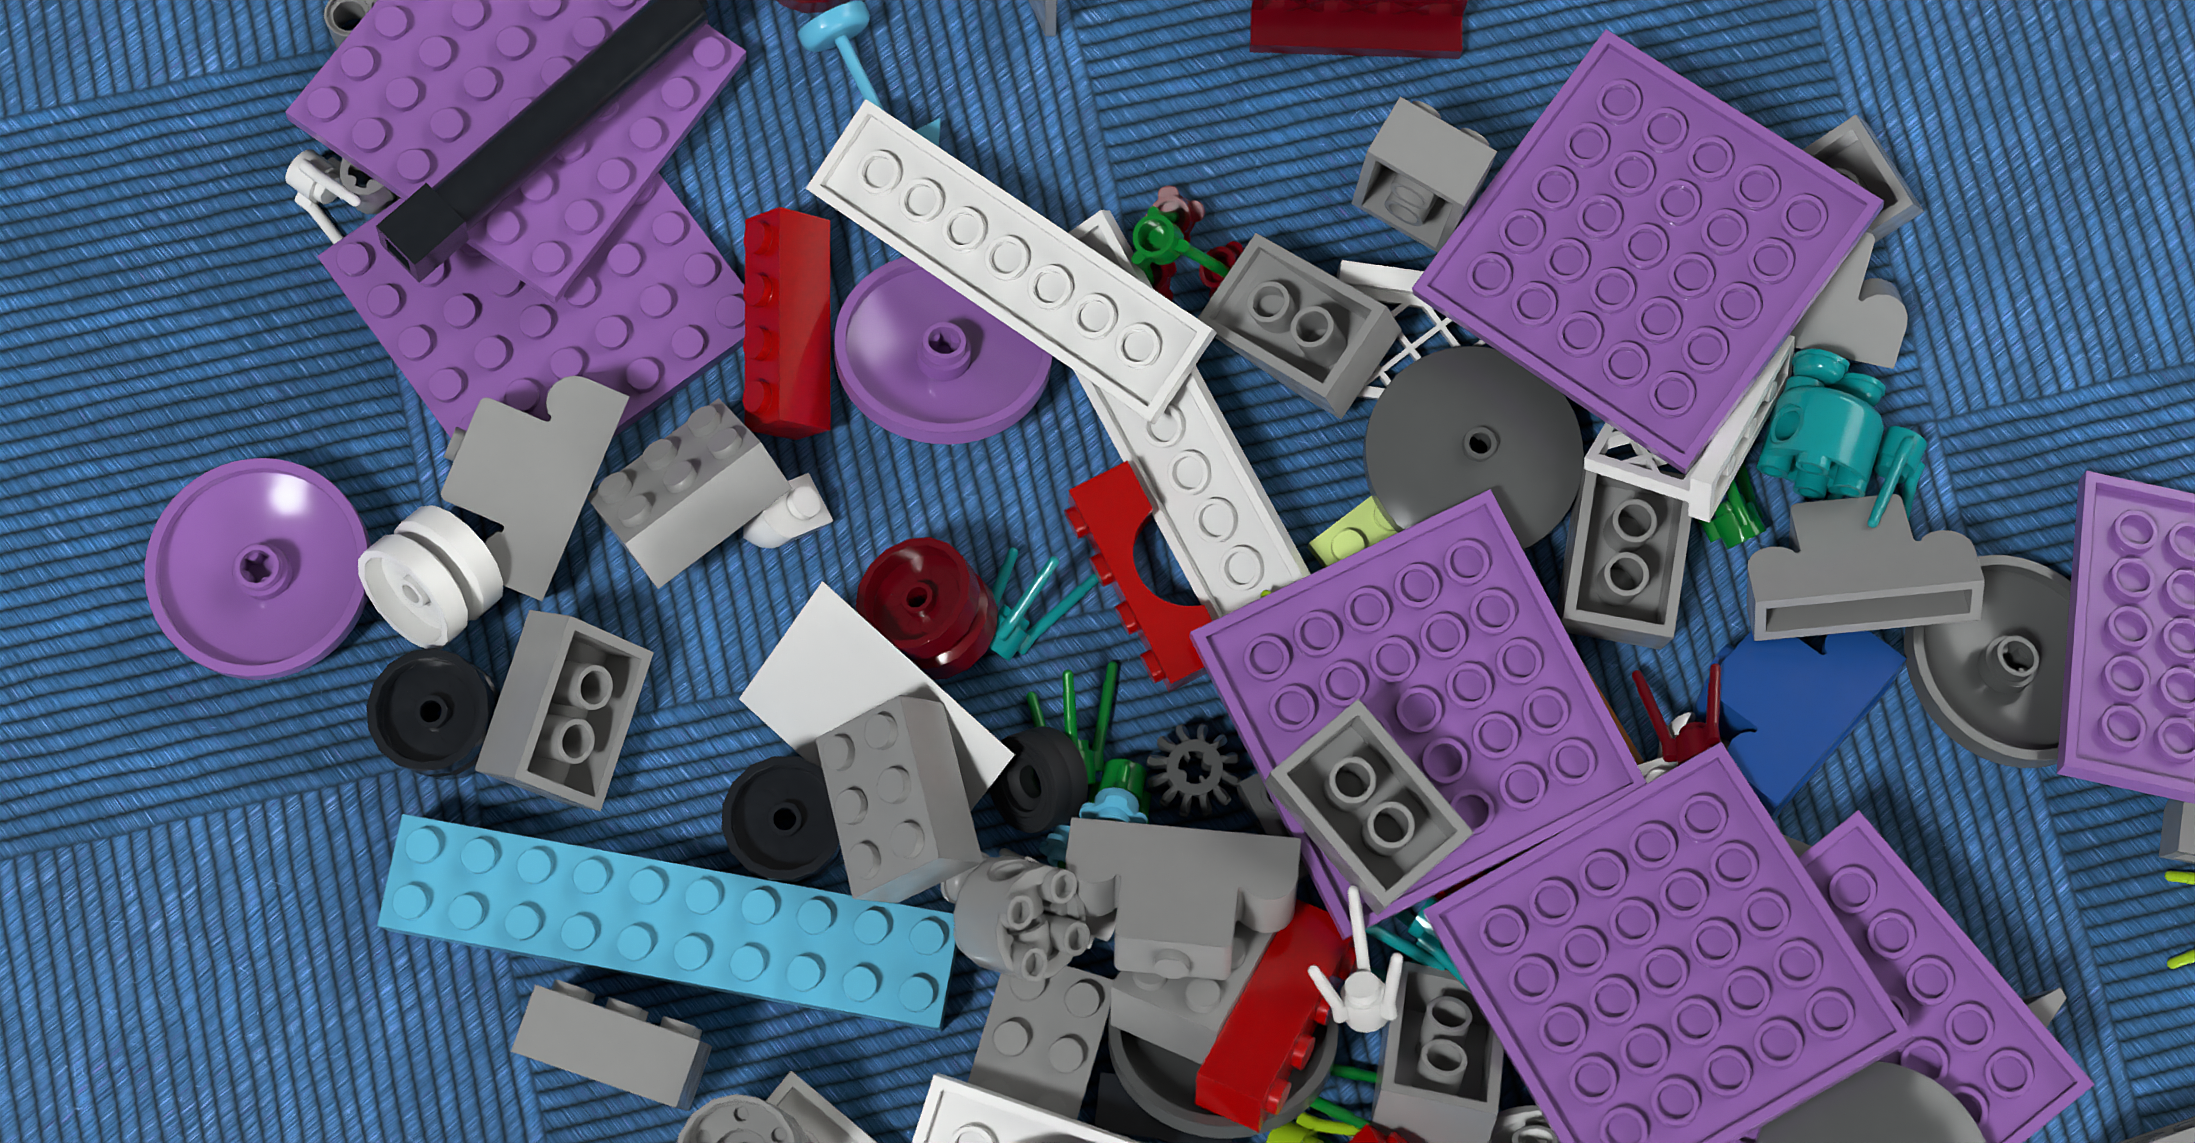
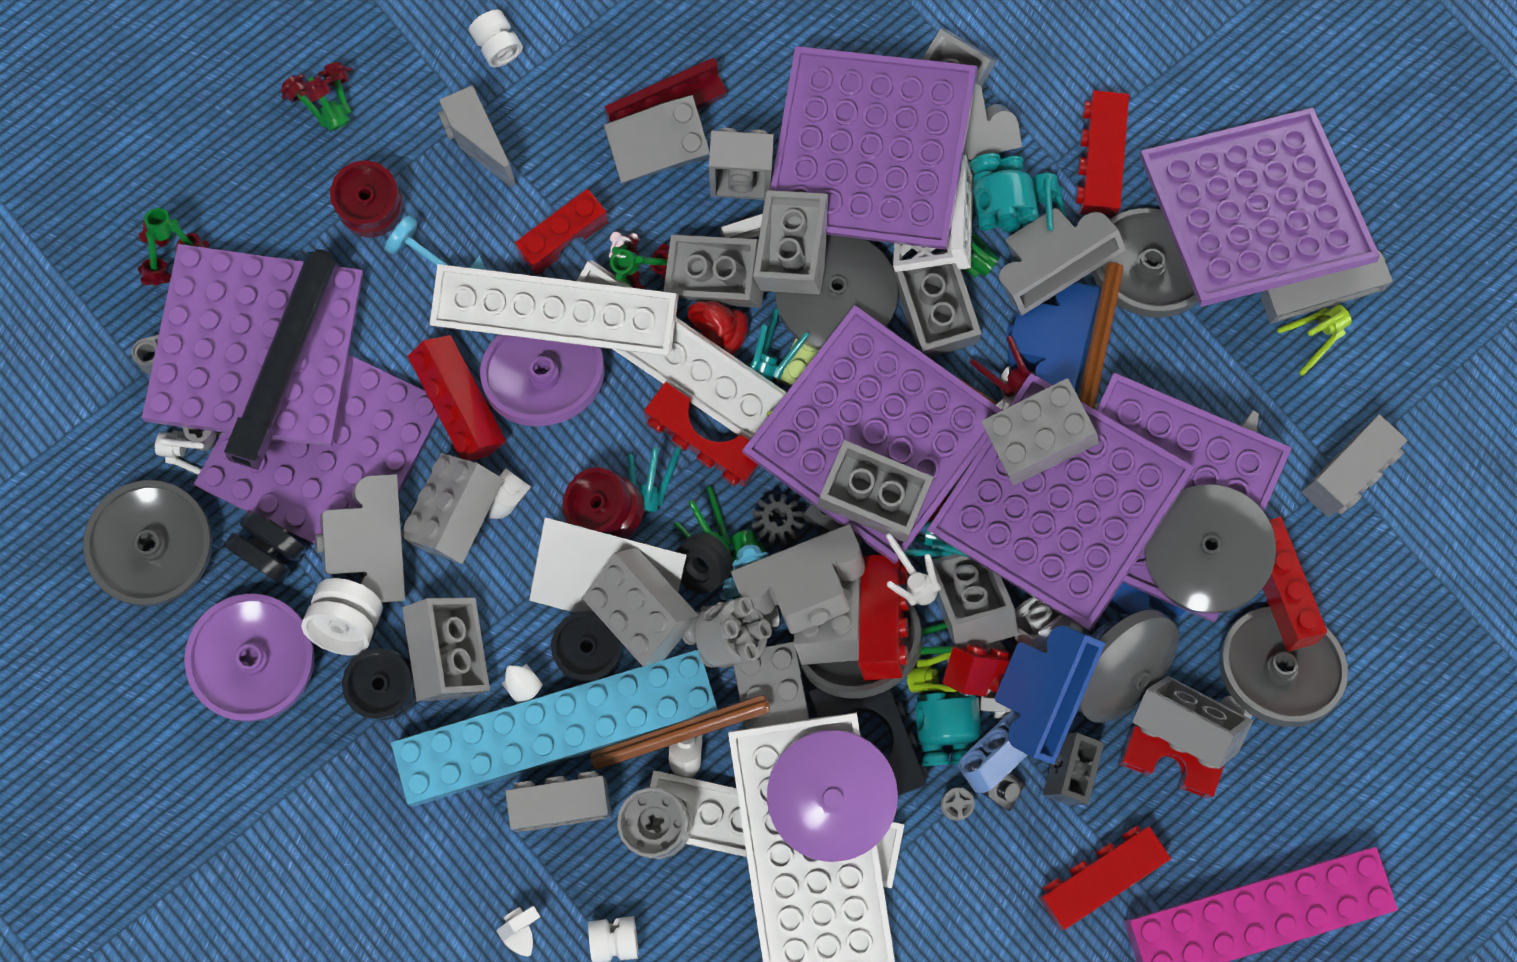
camera: 25 degrees left, 0 degrees up
(172, 273) = (120, 537): none -> dark grey dish
(365, 410) = (264, 547): none -> black wheel
(655, 825) = (521, 683): none -> white plate
(856, 1067) = (686, 757): none -> white plate
(863, 1032) = (680, 732): none -> dark orange axle
(1119, 135) = (576, 219): none -> red arch
(1261, 413) = (720, 324): none -> red hair
(1302, 512) = (765, 363): none -> teal plant
(1312, 72) = (657, 139): none -> light grey slope
(1440, 340) = (792, 242): none -> light grey slope
(1688, 847) = (1040, 431): none -> light grey brick
(1868, 736) = (1101, 334): none -> dark orange axle
(2022, 445) = (1103, 153): none -> red brick

